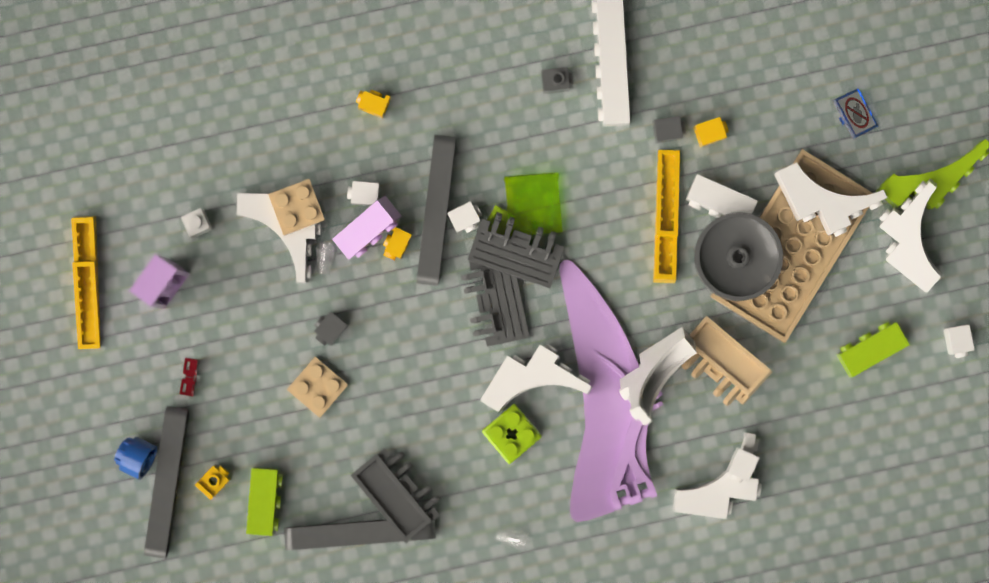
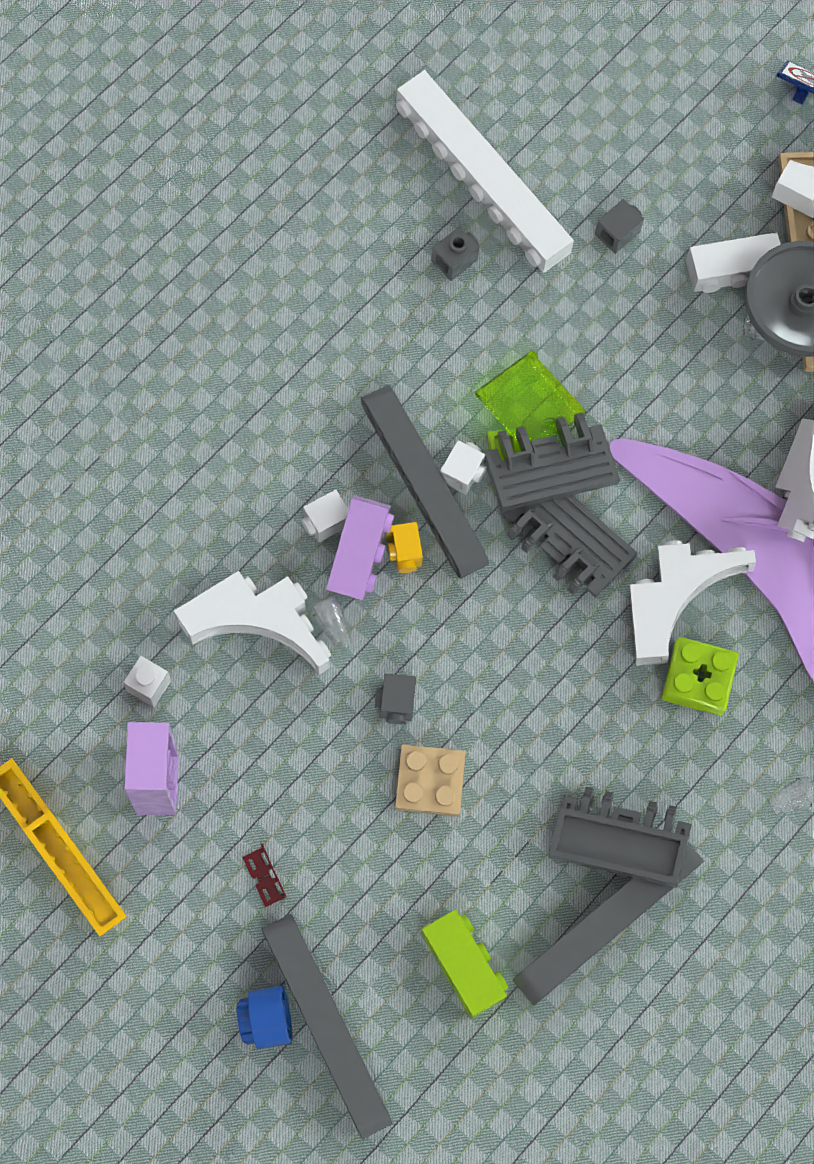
camera: 40 degrees left, 15 degrees down
(207, 488) = (380, 994): yellow brick -> none
(296, 207) = (258, 578): tan plate -> none
(373, 103) = (264, 410): yellow brick -> none
(666, 216) = (690, 322): yellow slope -> none
(711, 131) = (667, 199): yellow brick -> none

